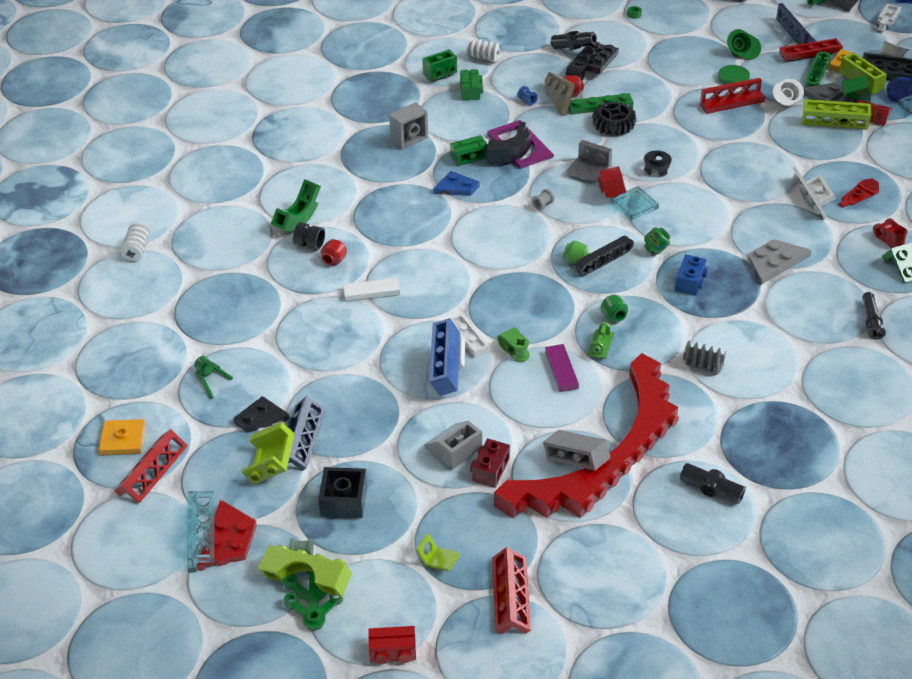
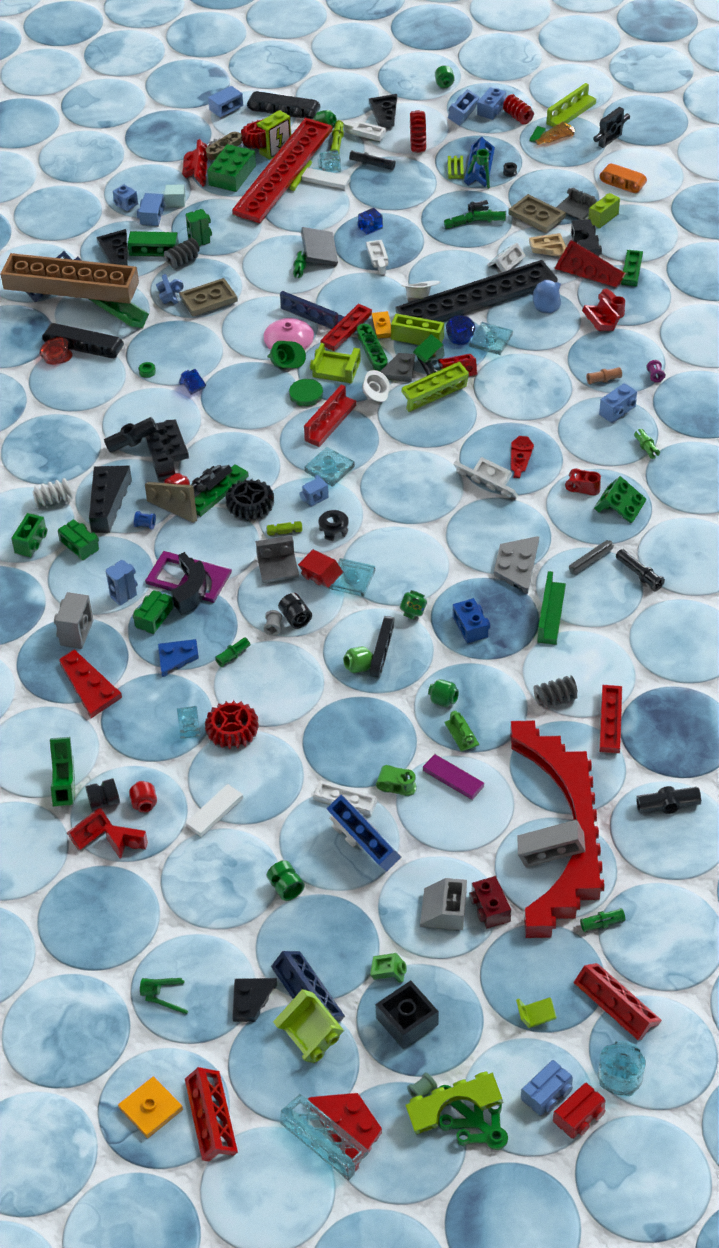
camera: 40 degrees left, 5 degrees up
(278, 251) = (88, 829): none -> red plate
(293, 269) = (121, 837): none -> red slope
(363, 357) = (285, 880): none -> green wheel
(371, 456) = (388, 966): none -> bright green bracket
(380, 172) = (90, 685): none -> red wing
(386, 610) = (547, 1087): none -> medium blue brick
(414, 225) = (188, 722): none -> clear light blue brick
(441, 244) = (231, 719): none -> red gear
(454, 637) = (621, 1068): none -> clear light blue brick
(465, 119) = (121, 582): none -> medium blue brick
(495, 202) = (232, 652): none -> green axle
(517, 68) = (107, 492): none -> black wedge
(565, 199) = (295, 610): none -> black wheel
(577, 534) = (589, 922): none -> green pin
(604, 90) = (210, 477): none -> black plate
(620, 148) = (284, 528): none -> lime axle
(656, 31) = (192, 381): none -> clear blue bracket
(666, 136) = (314, 491): none -> medium blue brick
(697, 127) = (329, 466): none -> clear light blue plate
(729, 401) = (610, 719): none -> red plate
(763, 301) = (551, 611): none -> green fence
(768, 35) = (289, 330): none -> bright pink dish
(773, 68) = (335, 365): none -> lime panel
(840, 286) = (591, 557): none -> dark grey axle

